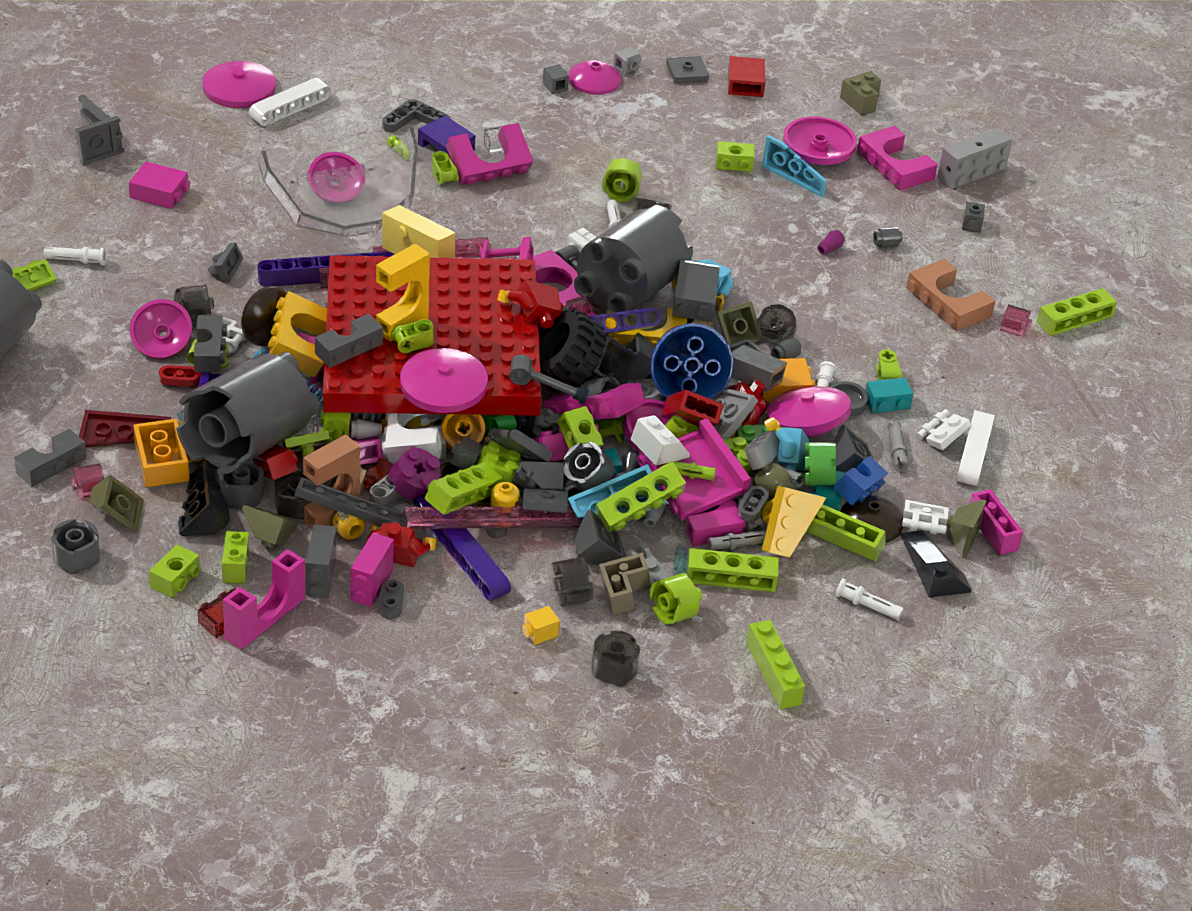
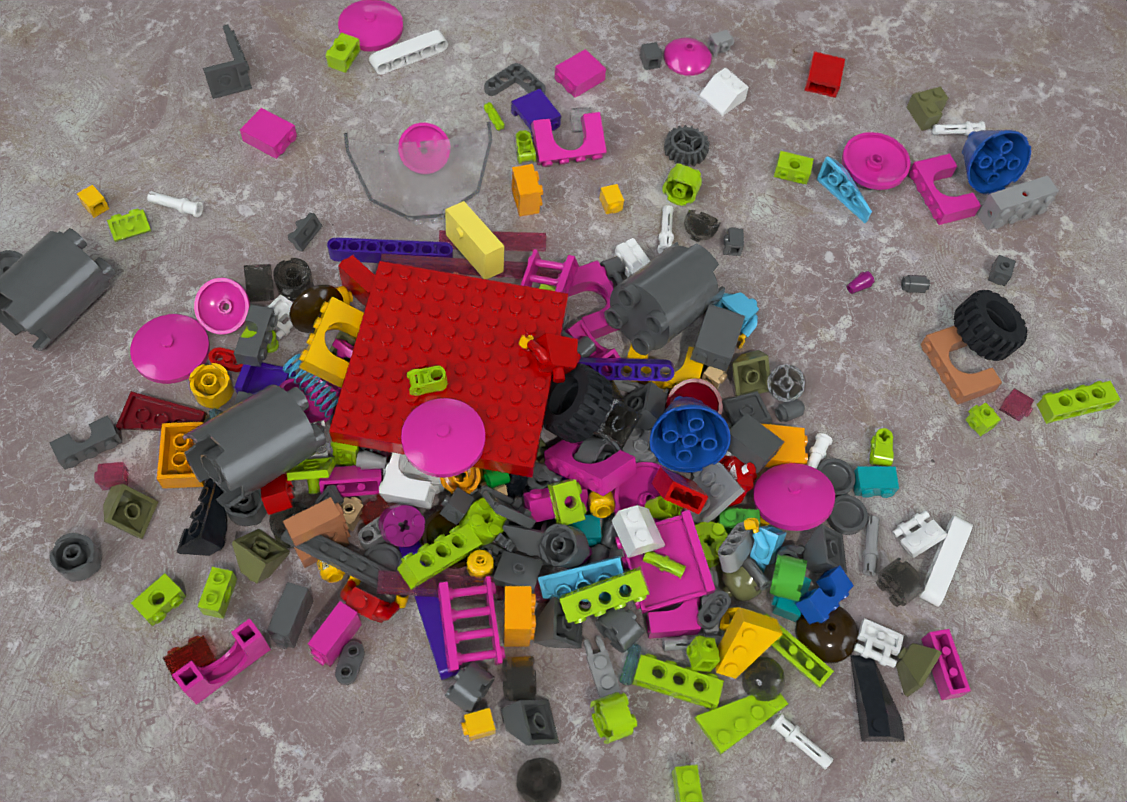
camera: 10 degrees right, 20 degrees up
(112, 375) = (169, 348): none -> dark pink dish
(167, 392) = (211, 385): none -> yellow brick
(217, 109) = (343, 52): none -> lime brick
(230, 298) = (292, 278): none -> clear smoke brick
(305, 284) = (356, 278): none -> red brick
(335, 348) = (351, 386): dark grey arch -> none
(405, 267) = (422, 323): yellow arch -> none
(457, 200) = (526, 190): none -> light orange brick
(483, 101) = (580, 73): none -> dark pink brick
(495, 551) = (452, 637): none -> dark pink fence
(522, 372) = (519, 440): dark grey piece -> none
(524, 592) = (470, 687): none -> dark grey brick
(549, 201) = (611, 199): none -> yellow brick
(557, 526) = (519, 616): none -> light orange brick
(583, 304) = (602, 349): clear pink tile -> none
(589, 614) = (531, 722): none -> dark grey slope
(615, 146) = (687, 141): none -> dark grey gear
(615, 435) = (600, 505): none -> yellow head
(622, 578) = (564, 682): dark tan brick -> none
(644, 101) = (724, 92): none -> white slope
(662, 530) = (620, 628): none -> dark grey brick
(687, 69) = (773, 58): dark grey plate -> none
(690, 223) = (734, 242): none -> dark grey brick
(752, 538) = (703, 653): none -> lime brick
(802, 593) = (737, 719): none -> lime wing
(817, 552) = (764, 679): none -> clear smoke cylinder
(868, 424) = (848, 515): none -> dark grey piece
(907, 107) = (964, 129): none -> white pin
(933, 465) = (900, 582): none -> clear smoke brick
(942, 119) = (995, 159): none -> blue cone
(971, 254) = (990, 325): none -> black tyre
(984, 334) = (982, 418): none -> lime brick

